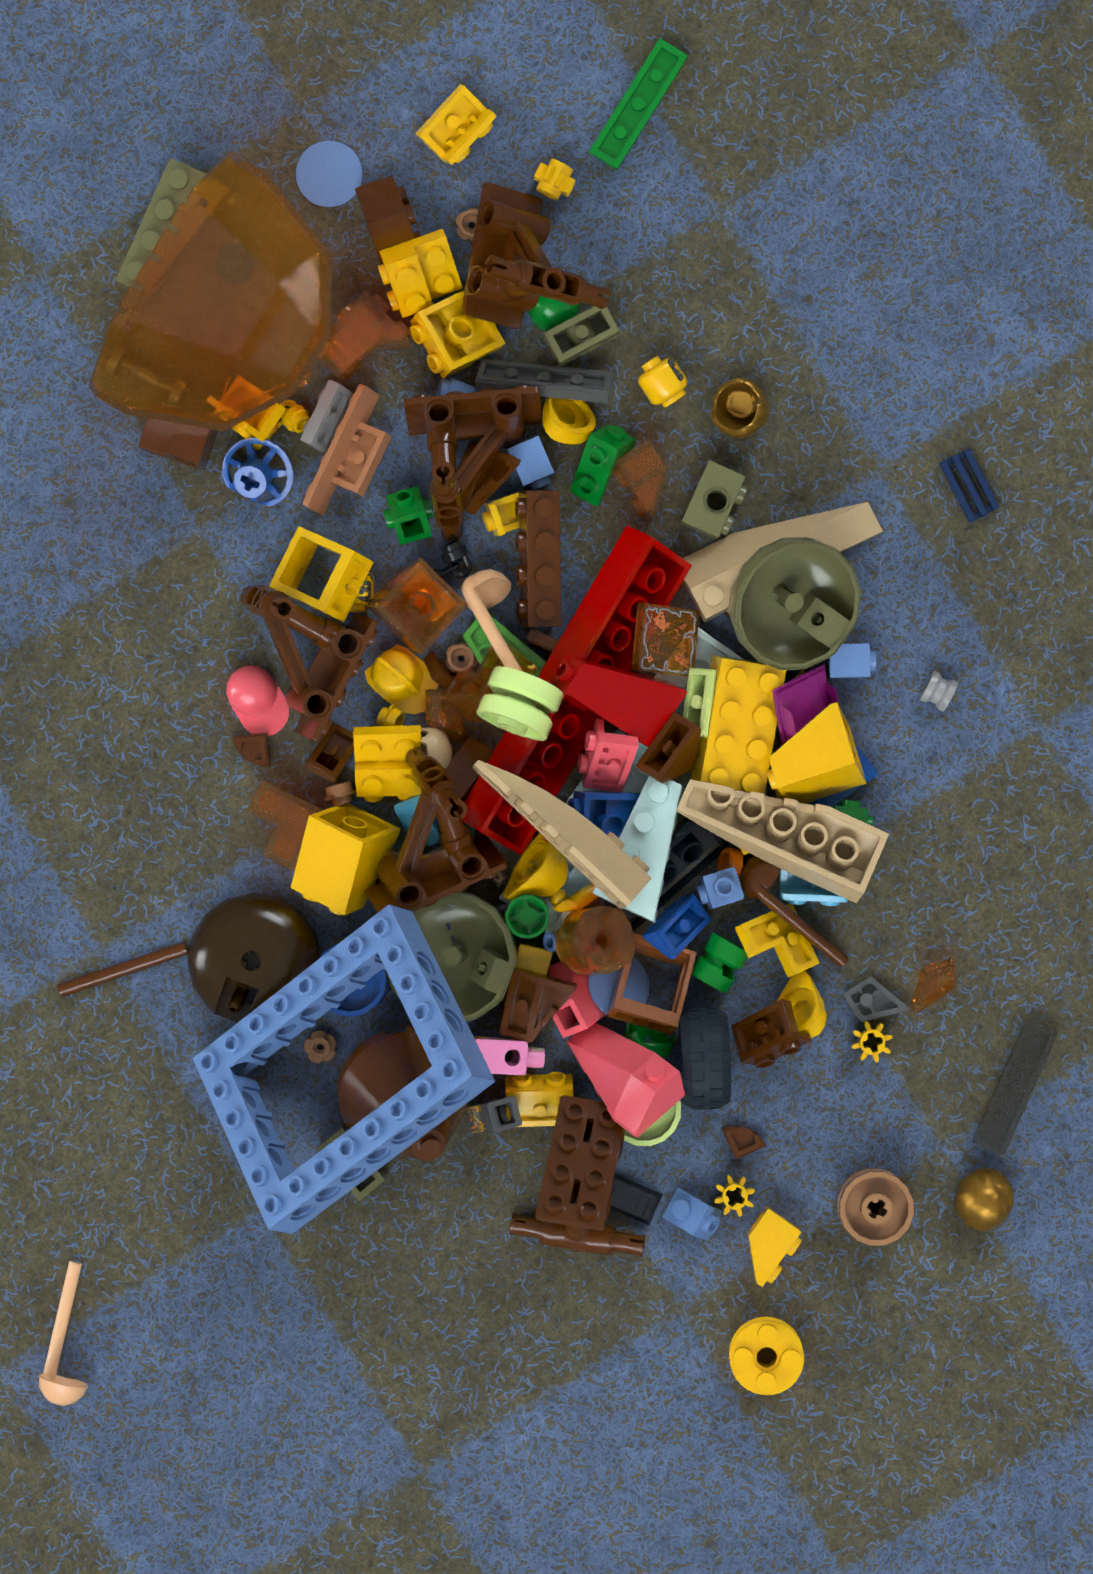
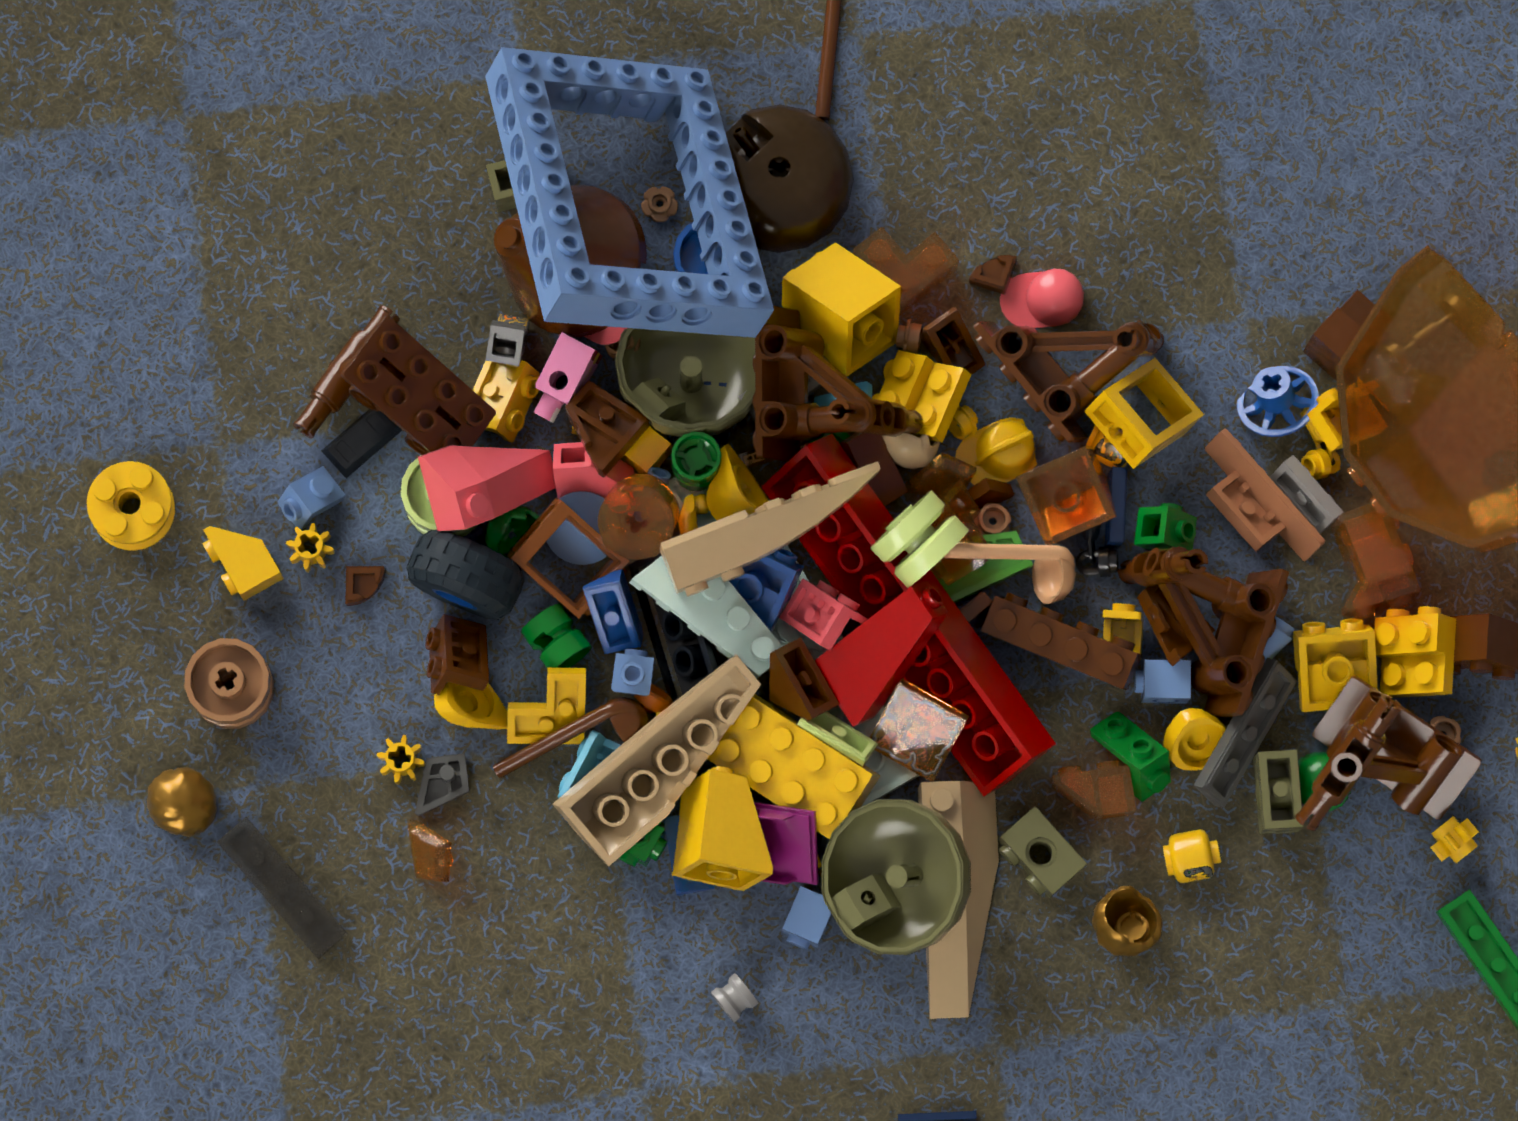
camera: 110 degrees right, 10 degrees down
(389, 569) = (1116, 527): none -> dark blue tile

